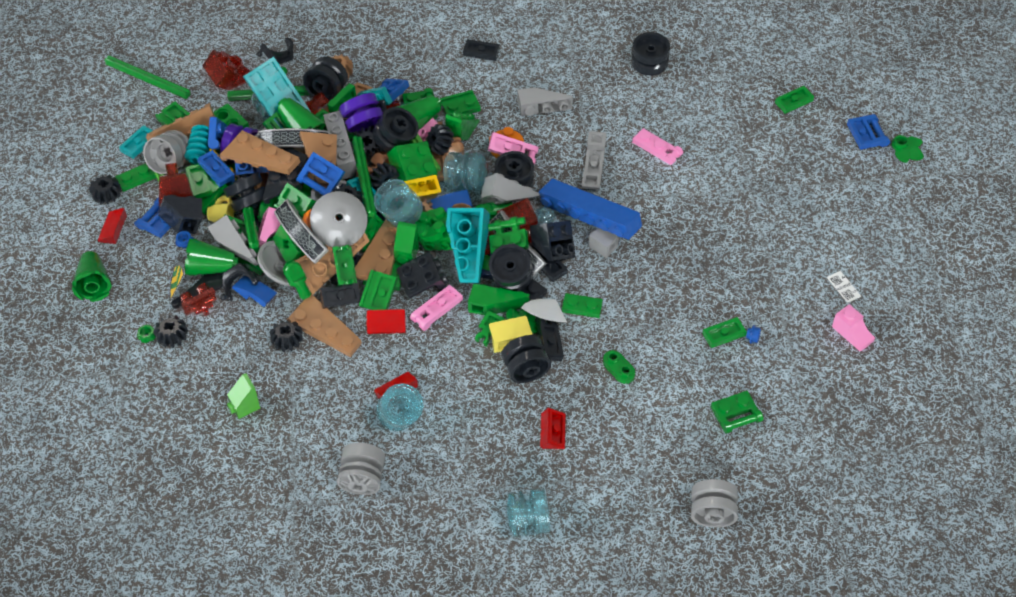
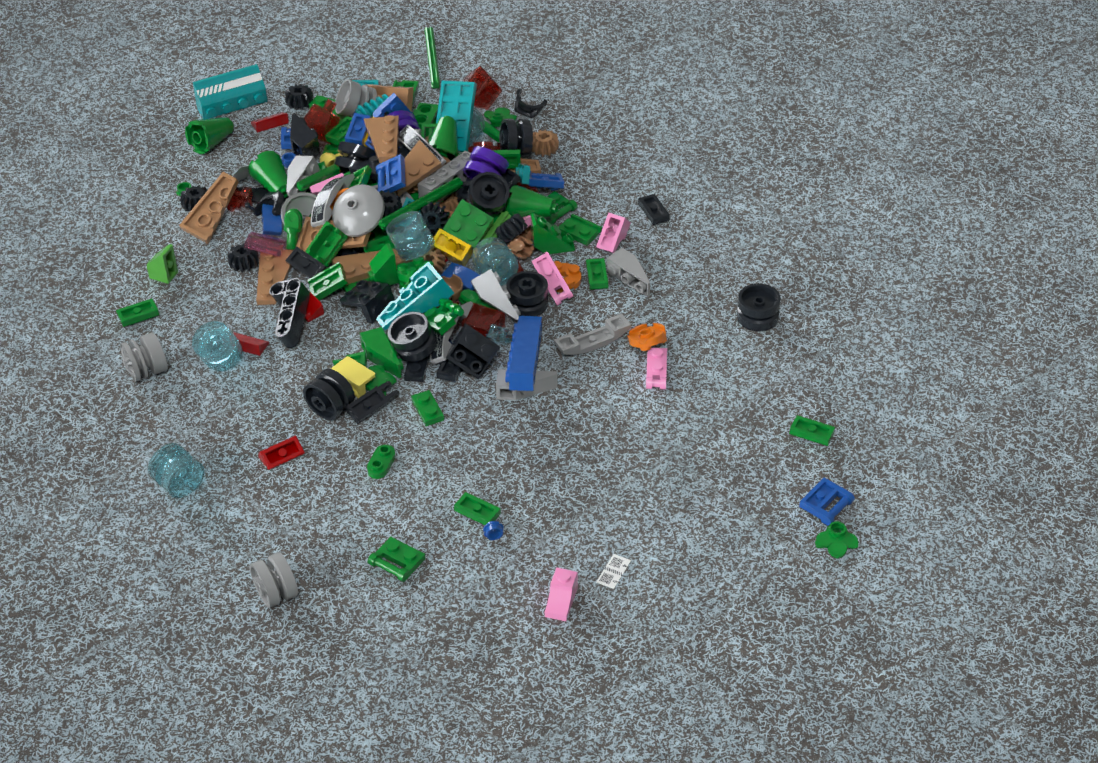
camera: 55 degrees right, 10 degrees down
(51, 233) = (229, 92): none -> teal slope
(203, 329) = (207, 213): none -> medium nougat wing
(284, 448) = (137, 312): none -> green plate
(287, 309) = (265, 243): none -> clear pink slope
(396, 336) = (293, 299): none -> black beam
(436, 307) = (344, 323): bright pink plate -> none
(490, 87) = (613, 232): none -> bright pink arch
(524, 122) = (596, 273): none -> green plate
(545, 309) = (396, 384): white sticker -> none
(627, 137) = (646, 337): none -> orange plate

